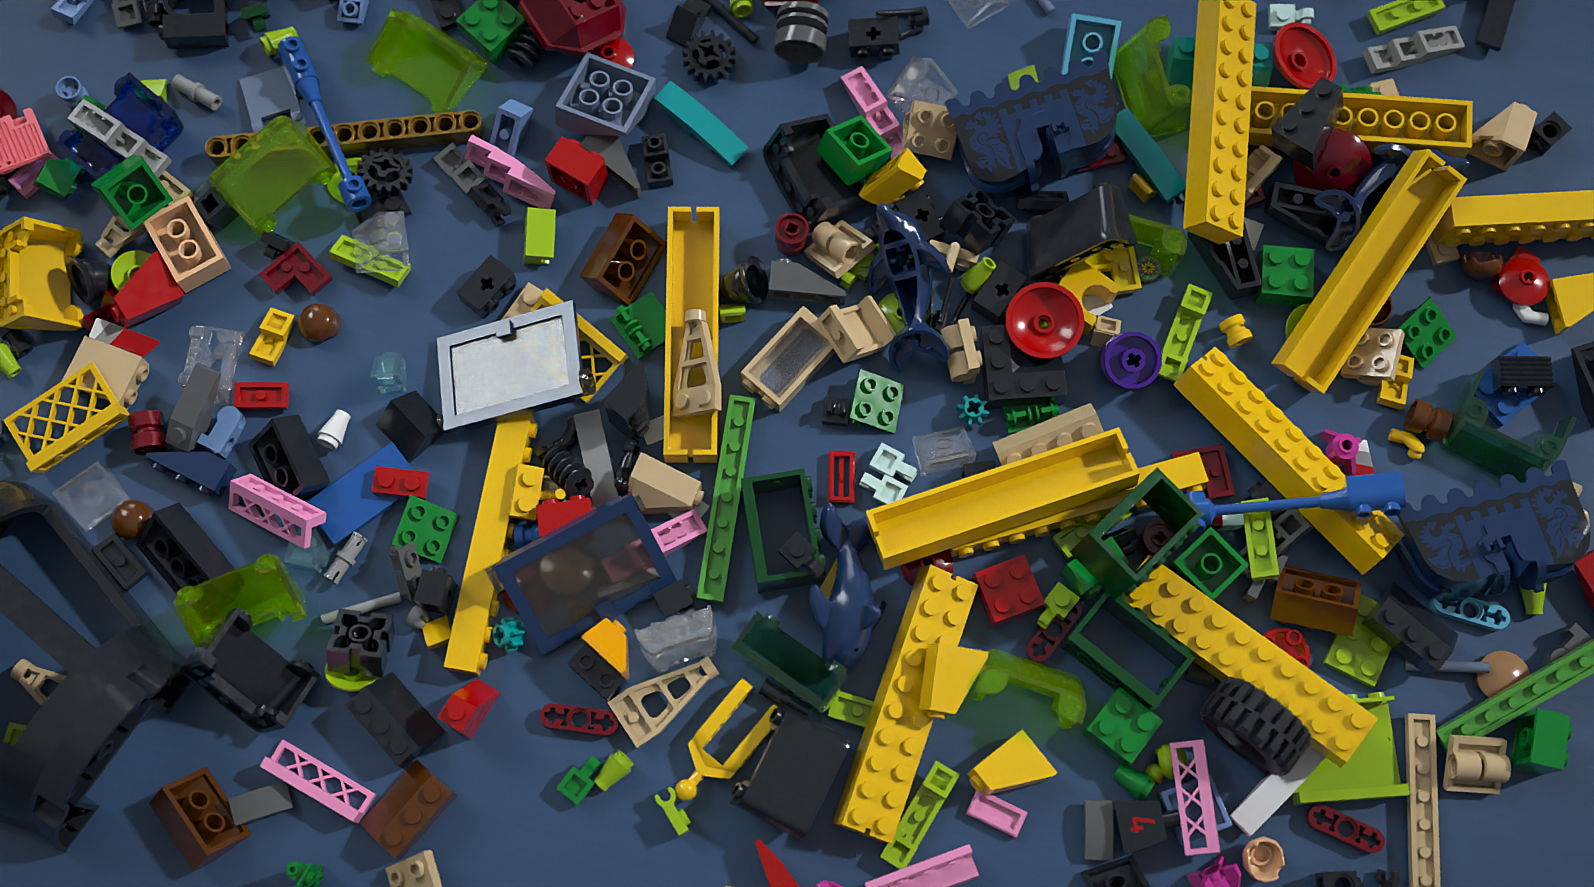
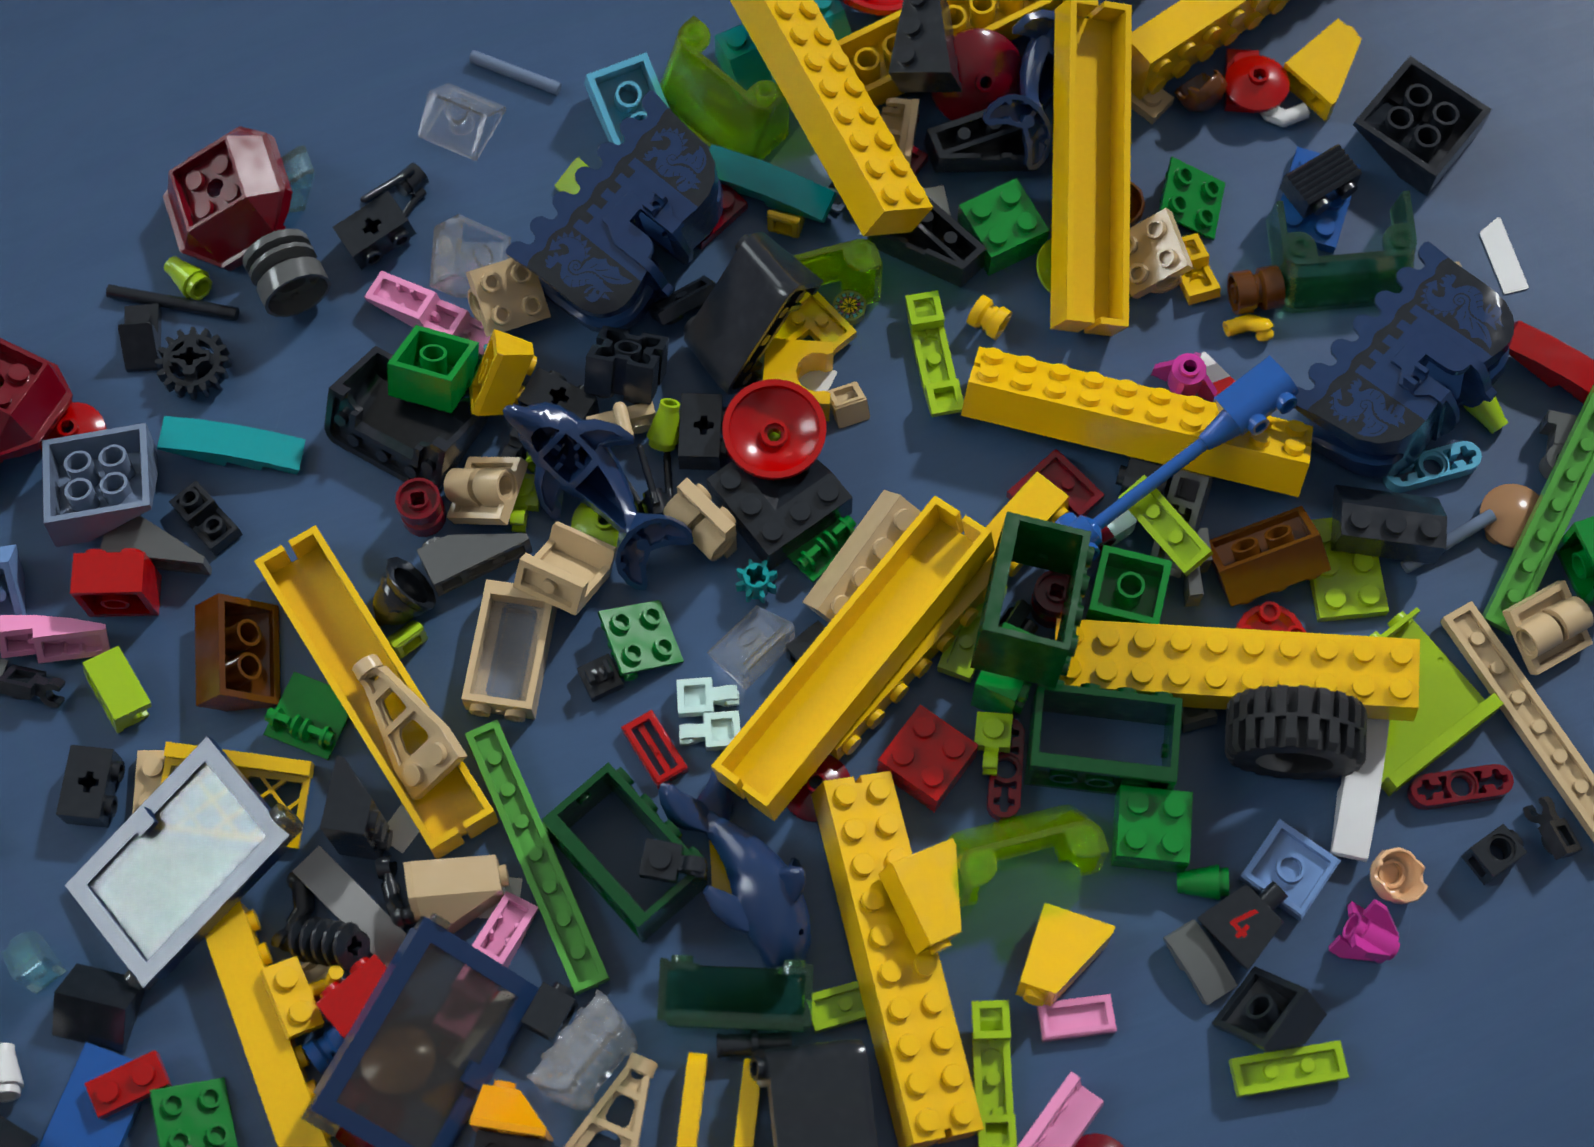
camera: 30 degrees left, 5 degrees down
(1145, 364) = (910, 402): dark purple wheel -> none
(1165, 765) = (1230, 834): lime animal -> none
(1205, 796) = (1292, 845): bright pink fence -> none

